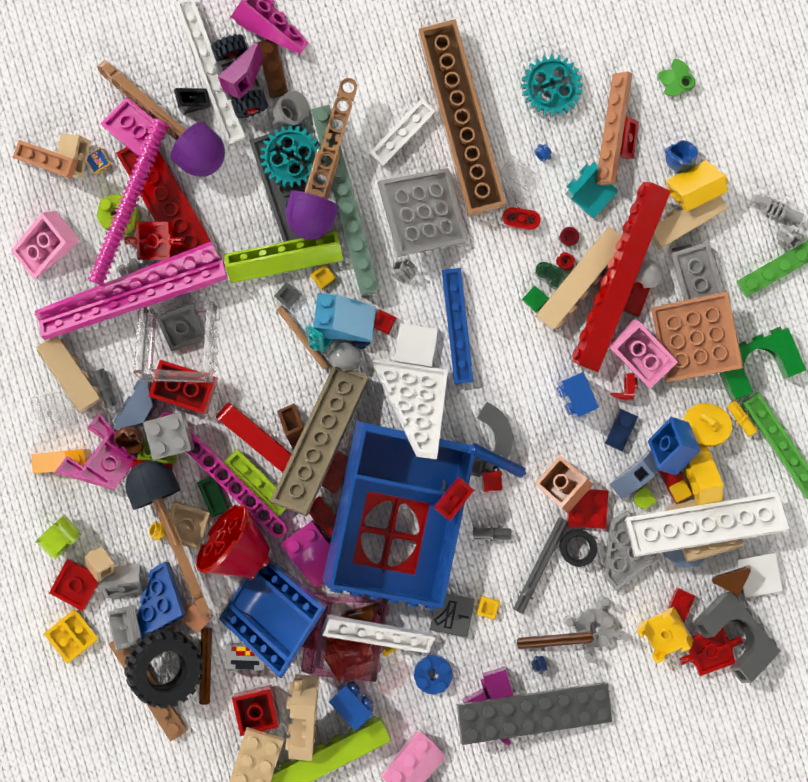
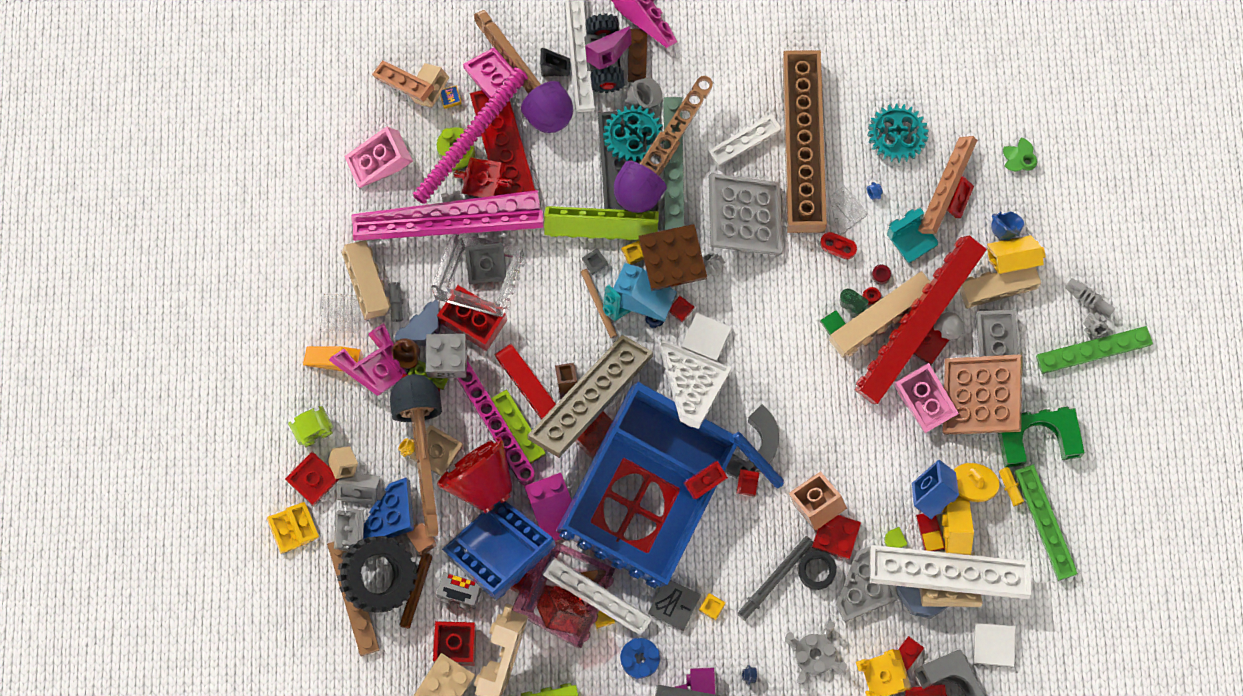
camera: 15 degrees right, 15 degrees down
(213, 496) = (470, 429): dark green tile -> none
(323, 516) = (571, 472): red plate -> none
(345, 356) = (635, 329): light grey hair -> none
(352, 703) = (551, 661): blue brick -> none
(363, 277) = (672, 257): none -> reddish brown plate
(457, 325) = (751, 329): blue plate -> none
(492, 533) = (734, 534): dark grey axle -> none
(555, 640) = (771, 653): reddish brown axle -> none
(577, 395) = (852, 420): blue brick -> none
(621, 430) = (888, 468): dark blue plate -> none
(630, 385) = (907, 425): red plate -> none
(635, 476) = (891, 513): sand blue slope -> none
(733, 580) = (967, 639): reddish brown slope -> none

